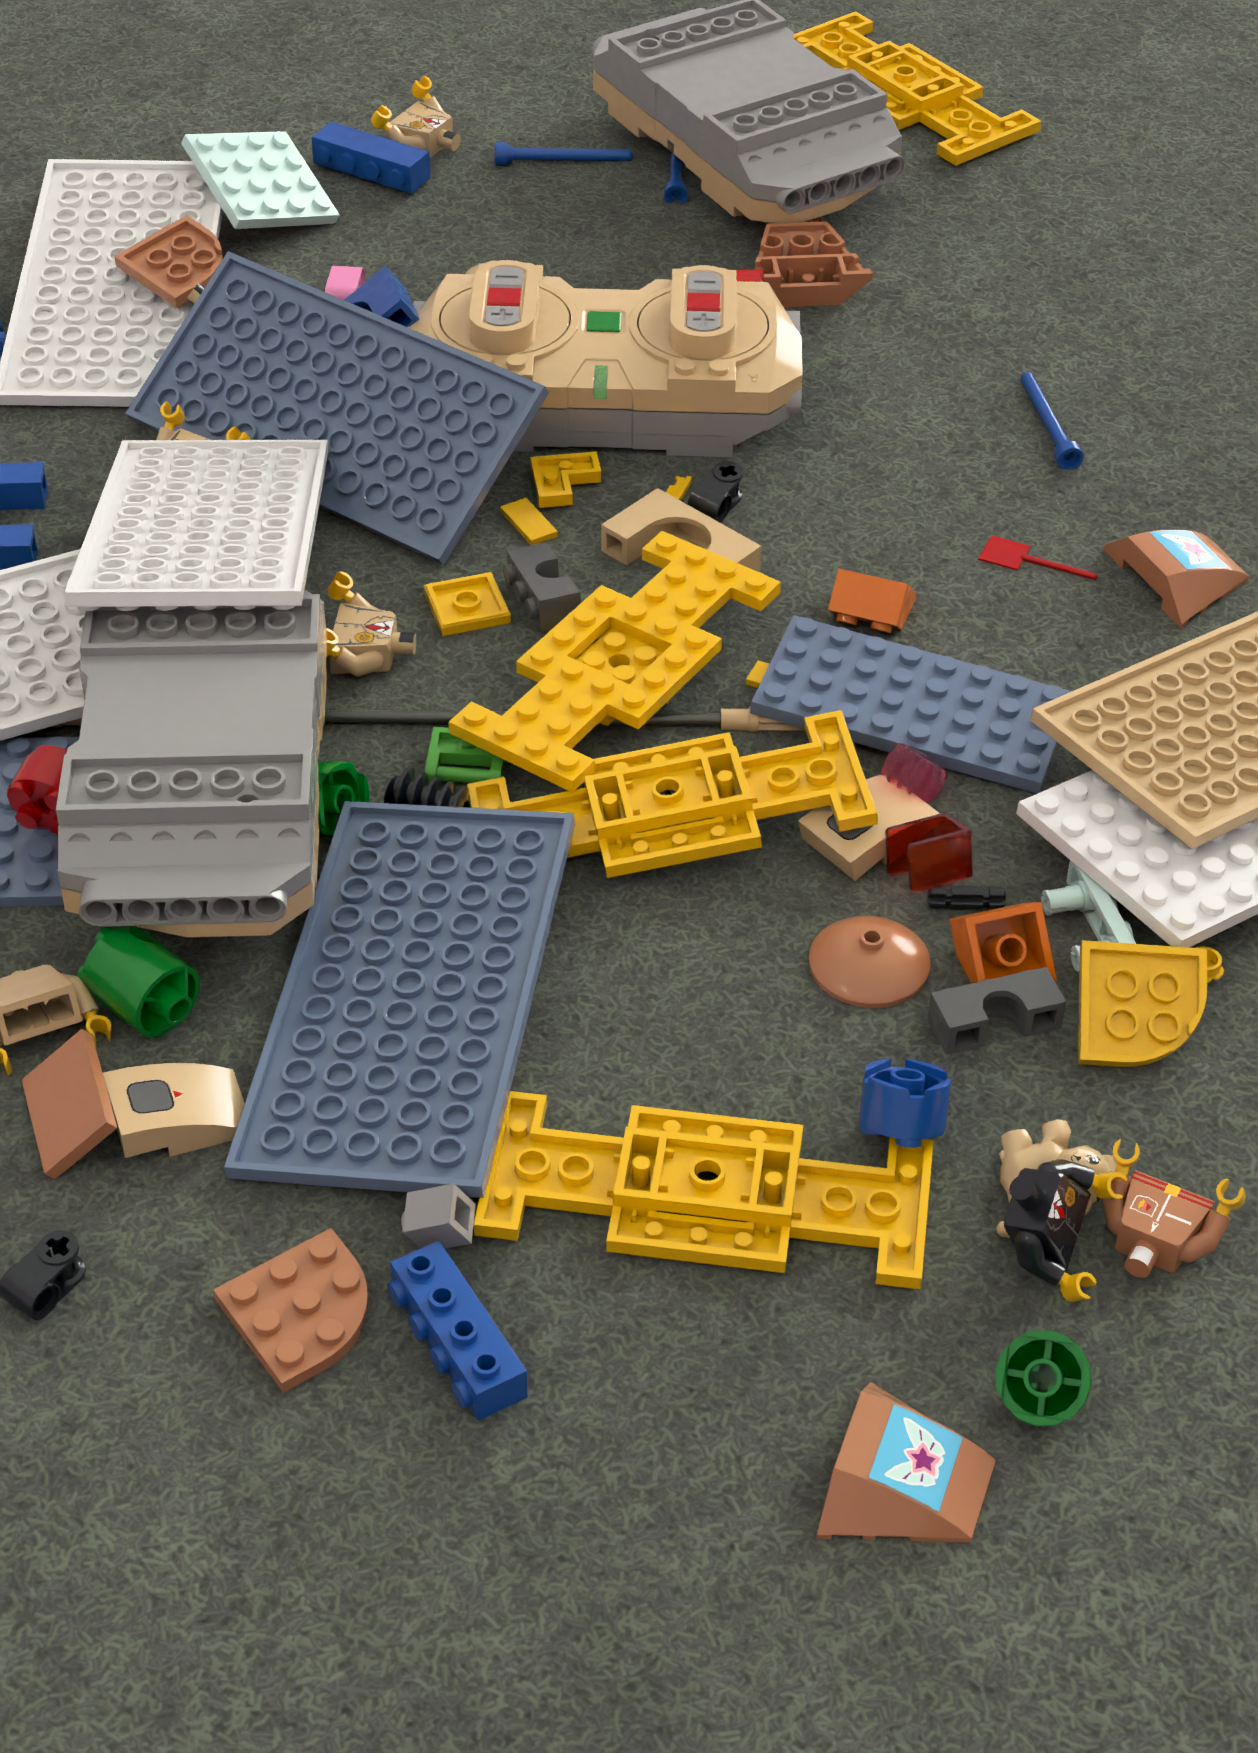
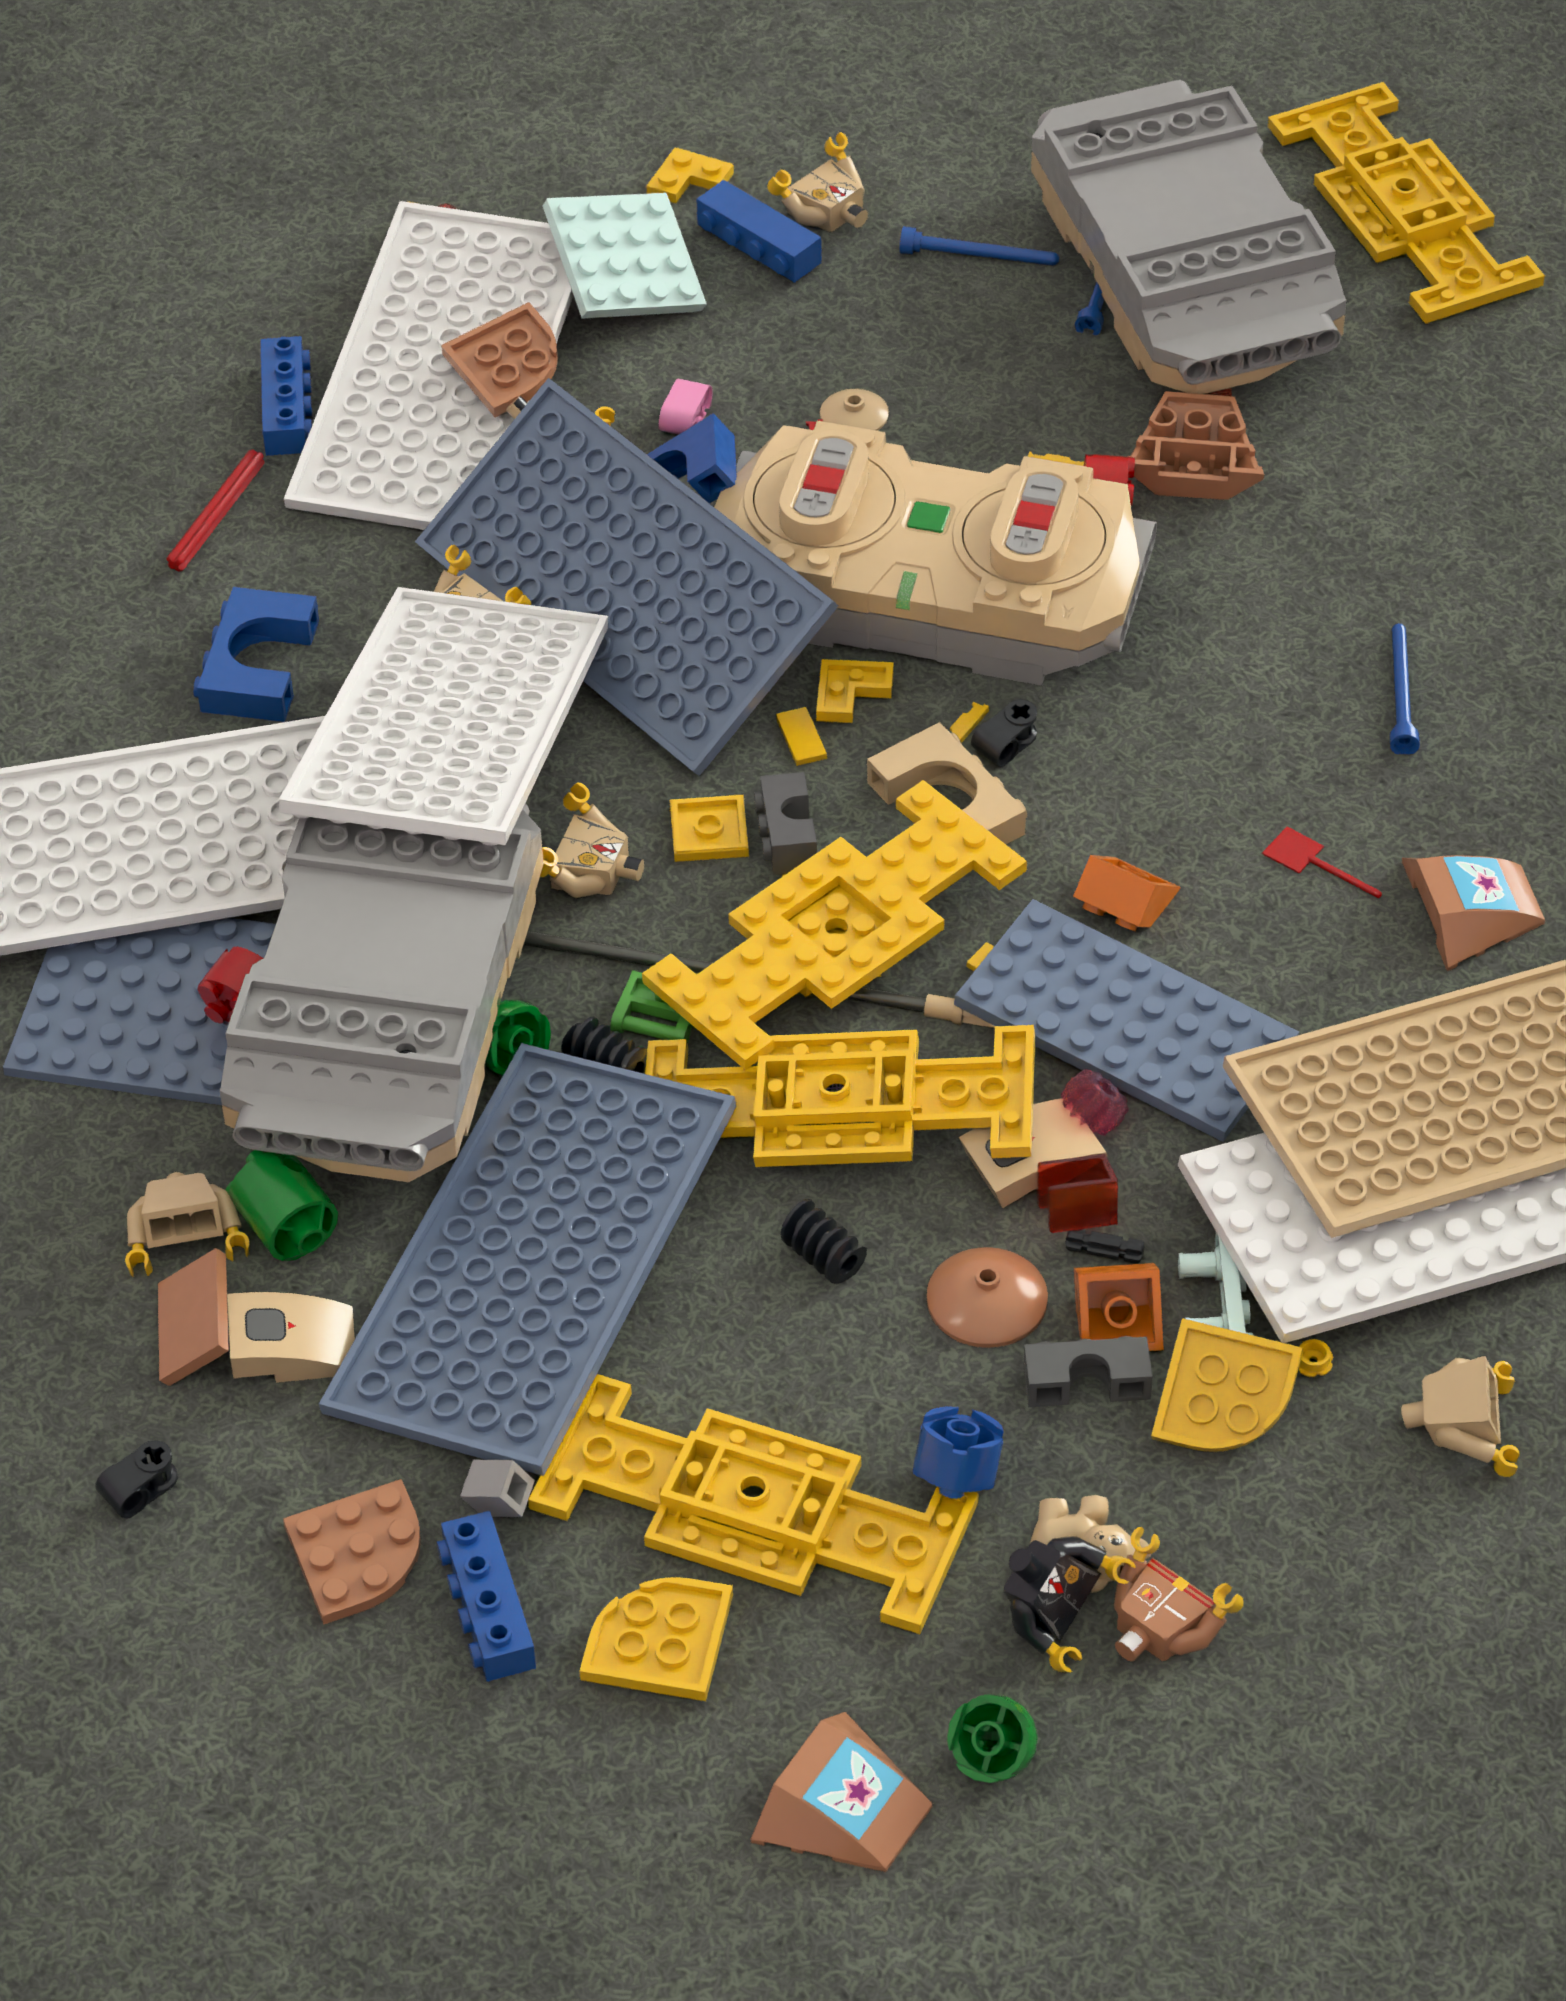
camera: 15 degrees right, 5 degrees up
(298, 124) = (688, 168): none -> yellow plate
(653, 1341) = (660, 1638): none -> yellow plate
(694, 936) = (822, 1242): none -> black piece

